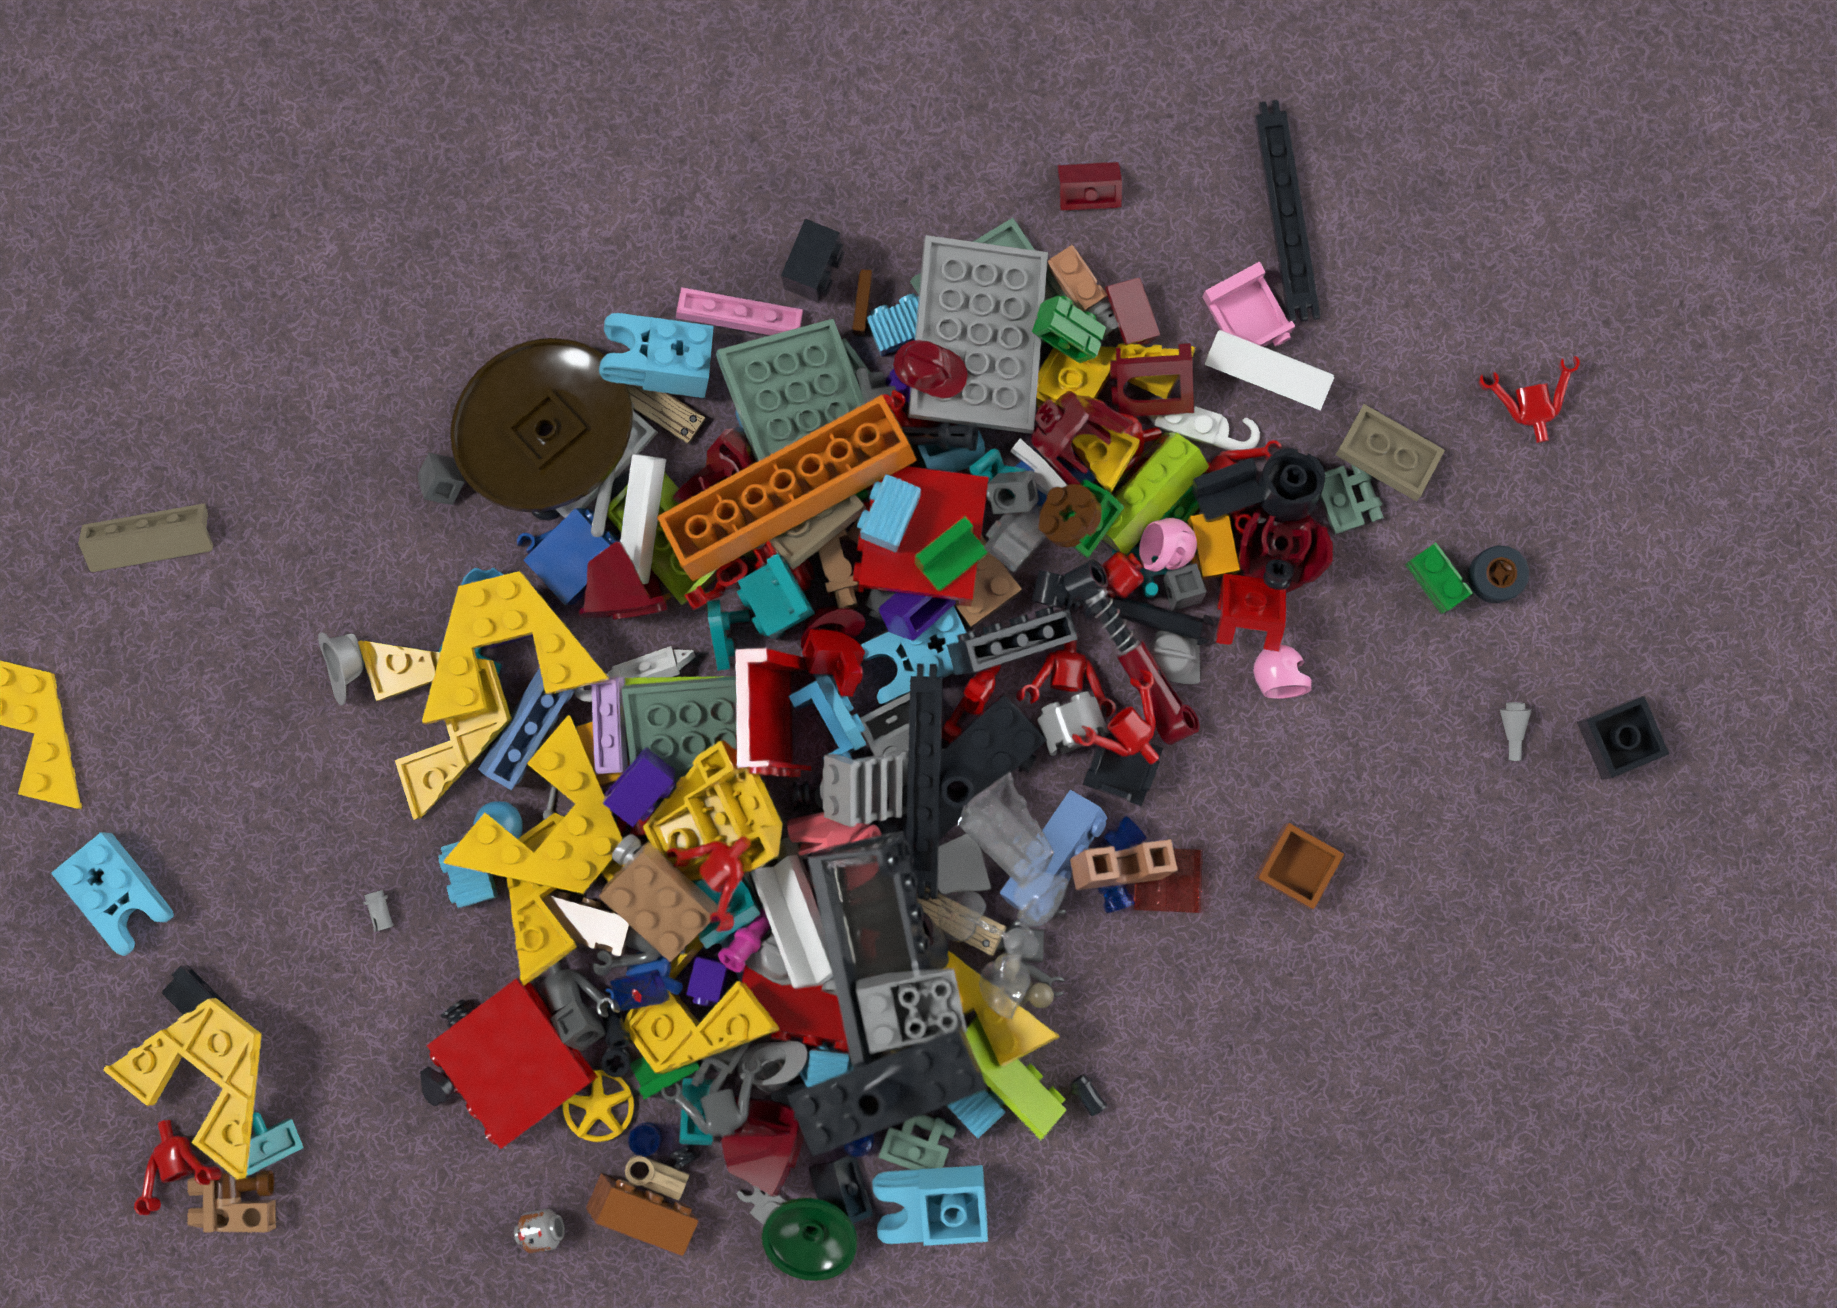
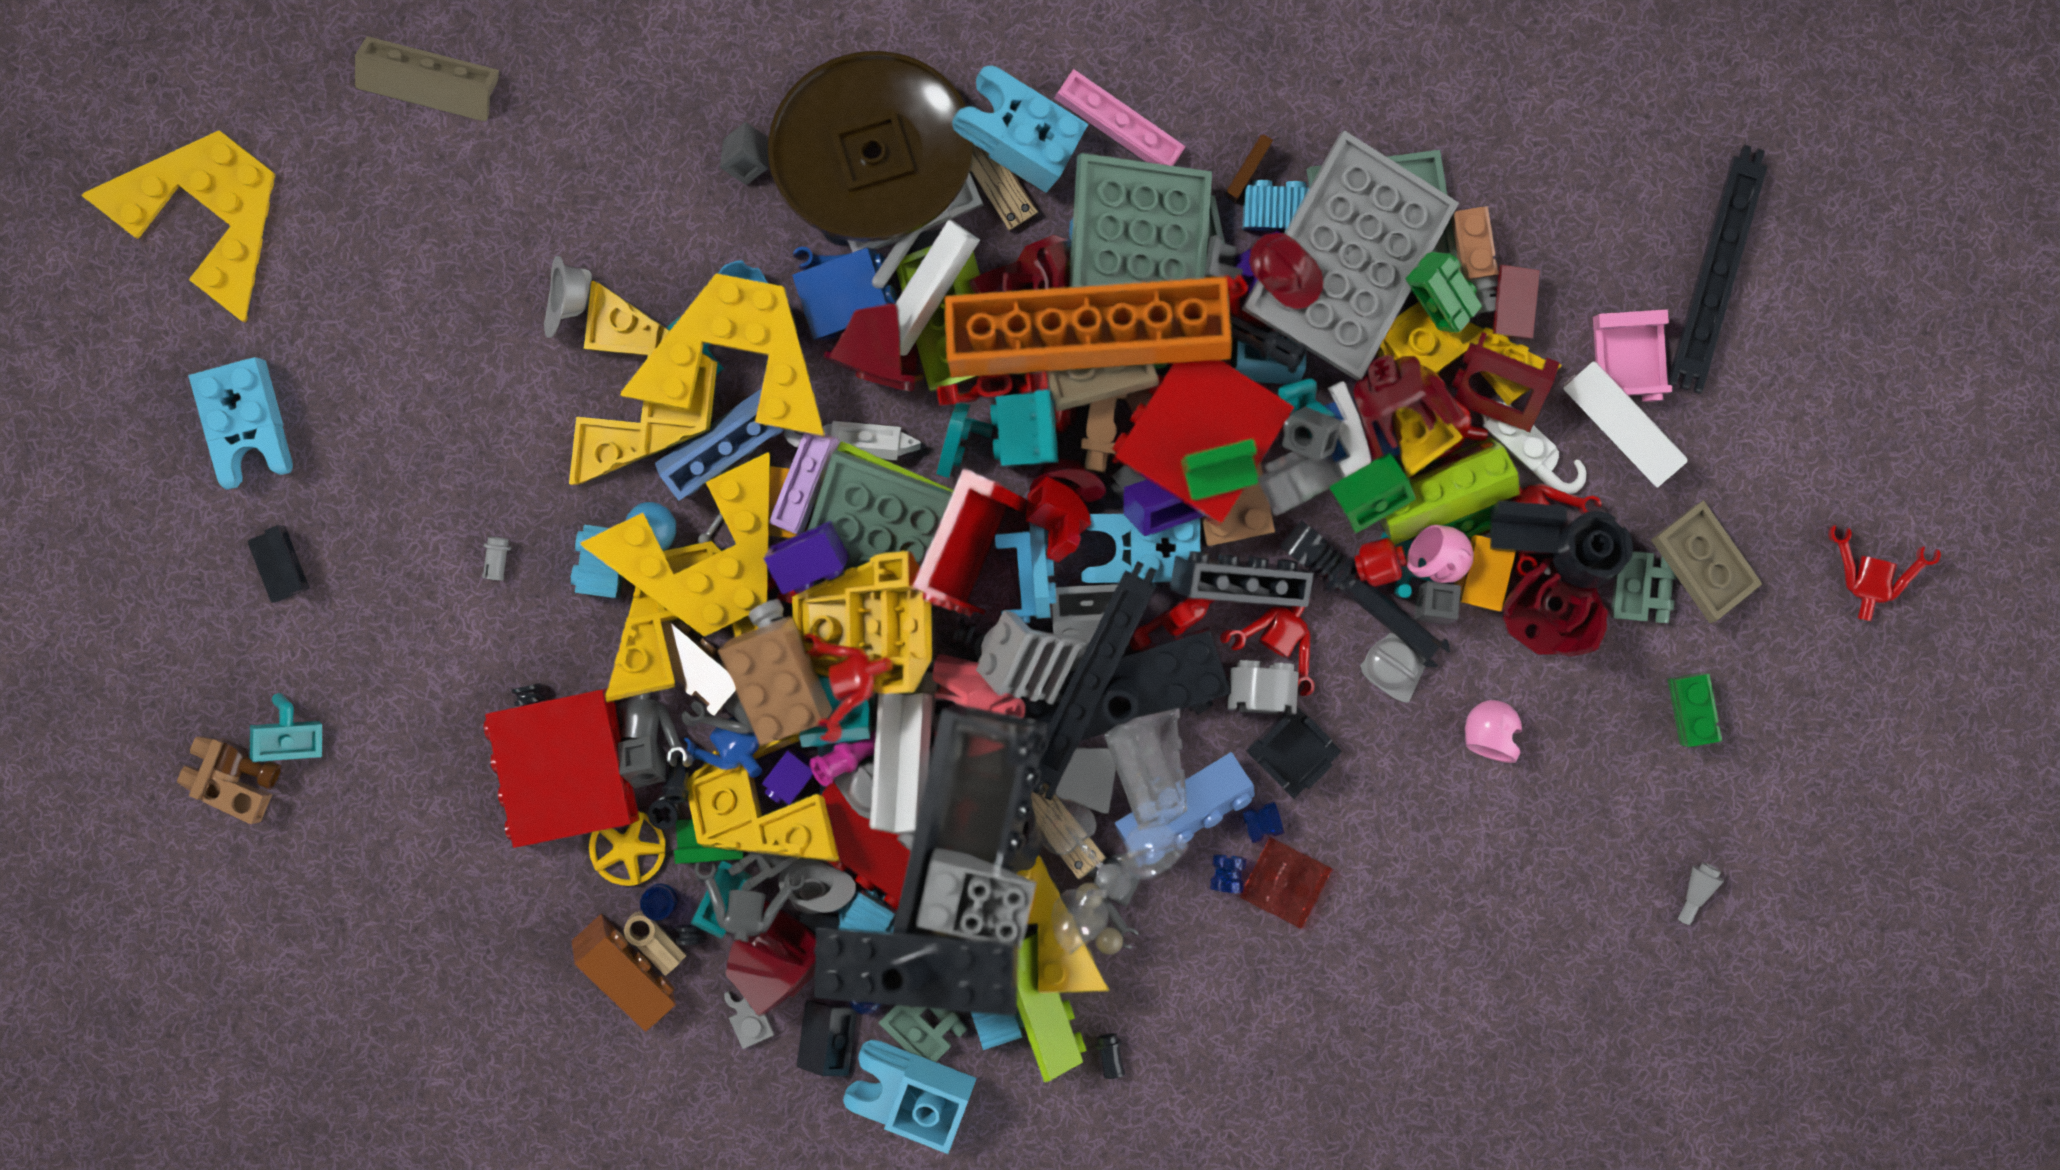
camera: 25 degrees right, 5 degrees up
(174, 1162) = (189, 713): red piece -> none
(223, 1050) = (284, 630): yellow wing -> none
(435, 1086) = (476, 757): black tile -> none
(539, 1231) = (516, 943): light grey head -> none
(639, 990) = (718, 756): clear blue tile -> none
(809, 1251) = (768, 1081): dark green dish -> none
(812, 261) = (1217, 102): black brick -> none
(889, 513) = (1179, 399): medium azure brick -> none
(1059, 504) = (1352, 467): reddish brown plate -> none
(1090, 186) = (1533, 152): dark red panel -> none
(1109, 867) = (1249, 853): nougat arch -> none
(1128, 727) = (1317, 718): red piece -> none
(1173, 718) = (1365, 727): piece -> none
(1251, 605) = (1496, 653): red panel -> none
(1278, 574) = (1532, 639): black bush -> none
(1299, 866) = (1421, 929): dark orange piece -> none
(1509, 571) = (1768, 735): black wheel -> none
(1623, 738) = (1801, 950): black brick -> none

